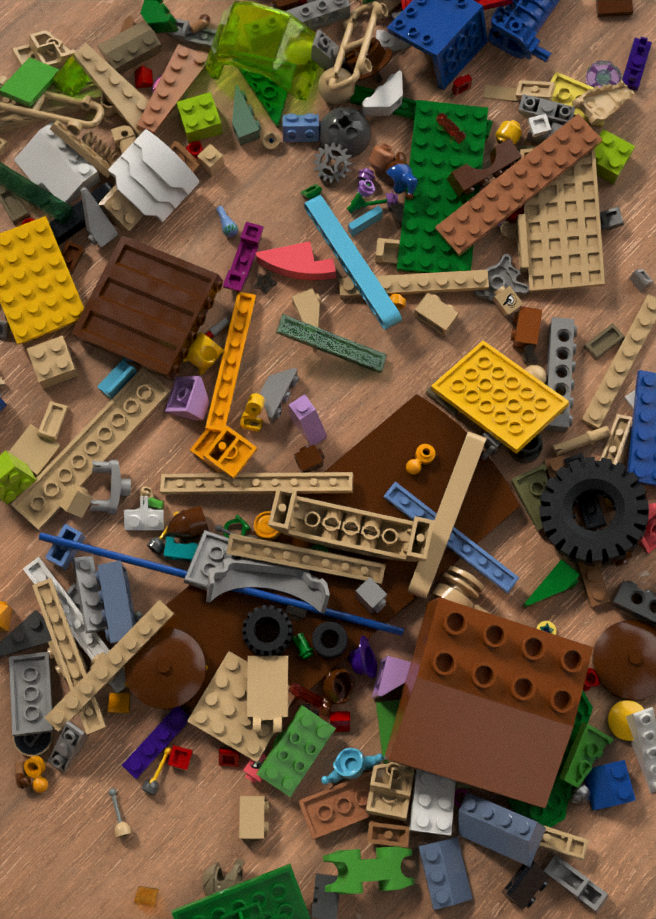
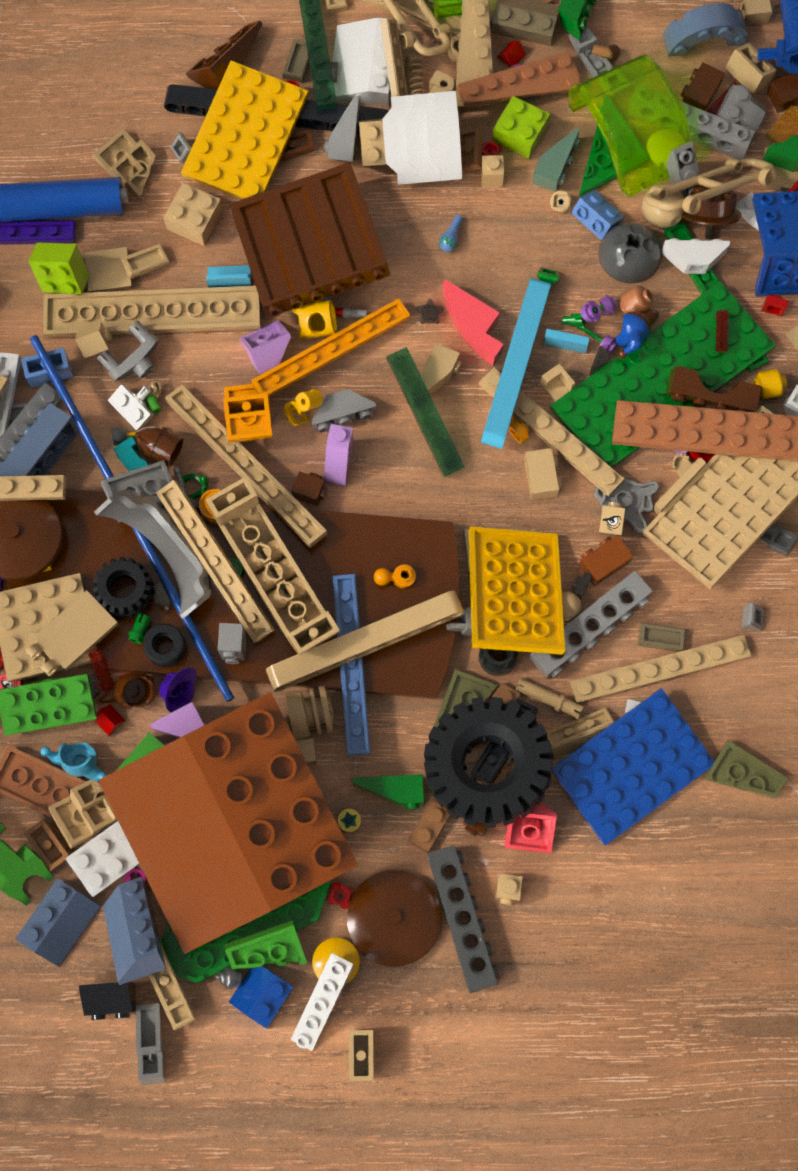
camera: 45 degrees right, 0 degrees up
(244, 257) = (432, 278): magenta slope -> none
(328, 152) = (590, 276): light grey gear -> none

